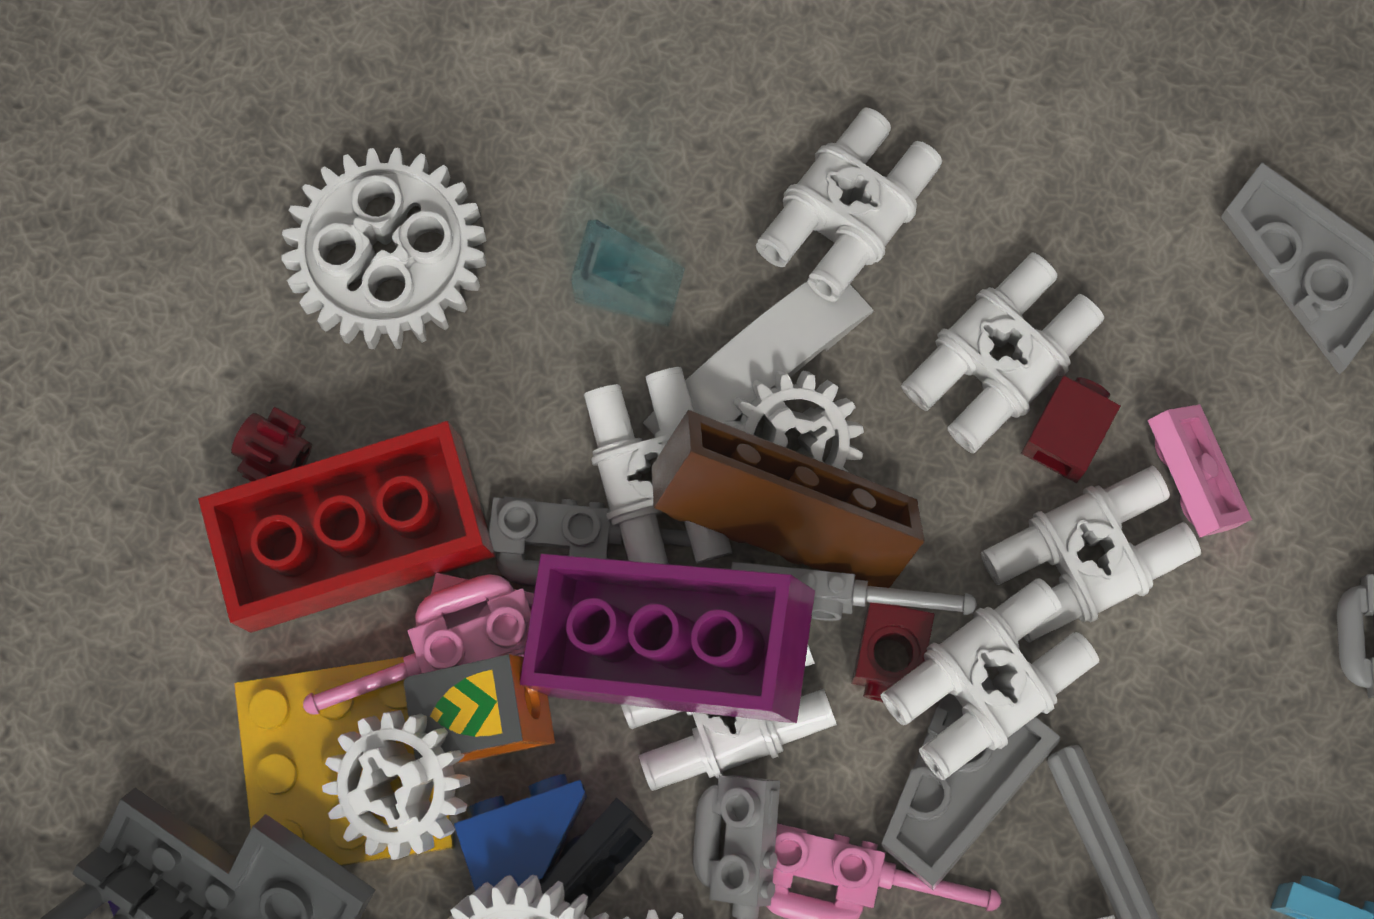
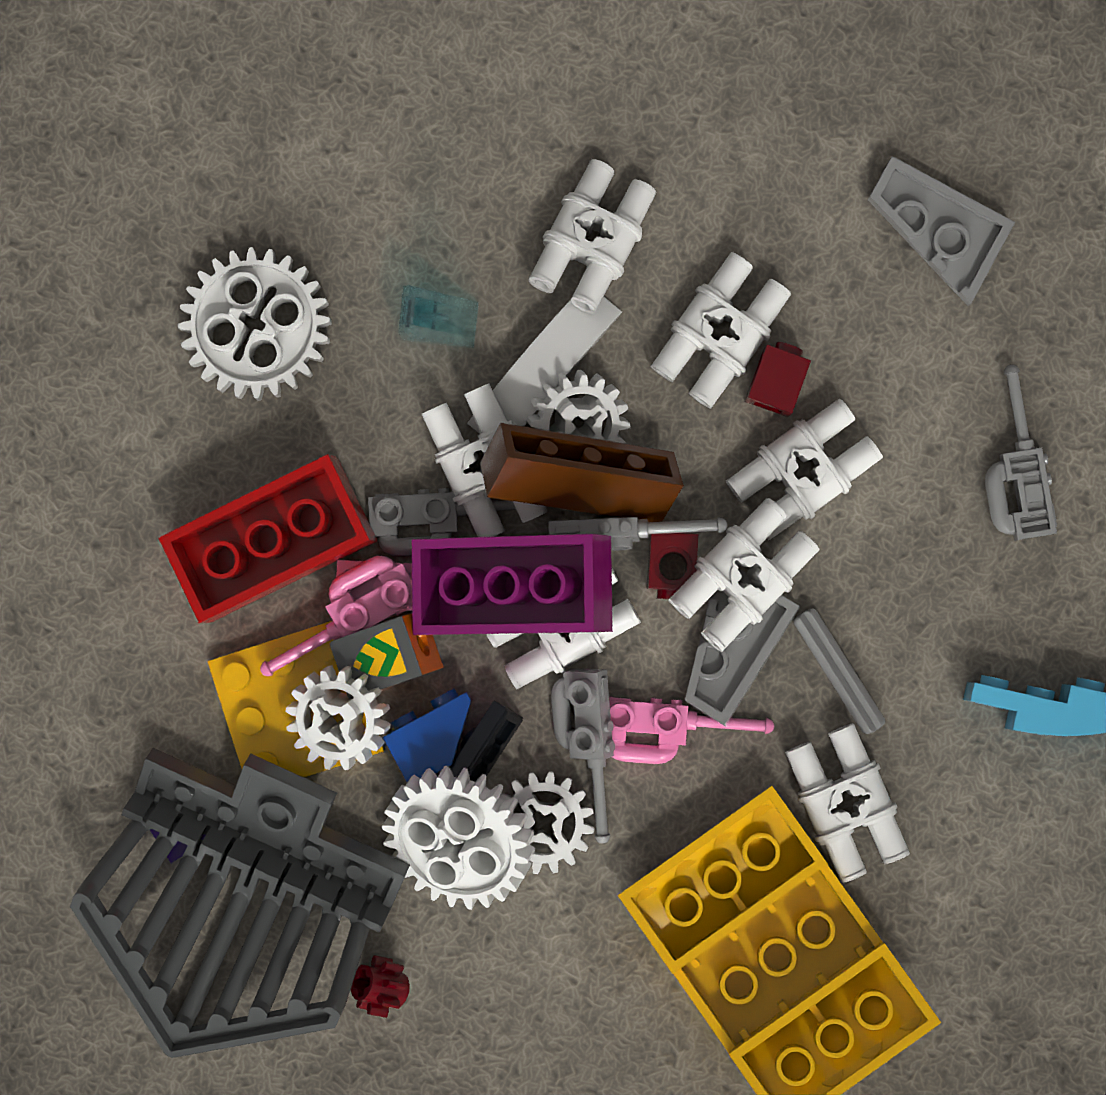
camera: 10 degrees left, 10 degrees up
(270, 445) = (201, 487): dark red gear -> none
(1199, 470) = (874, 395): bright pink plate -> none

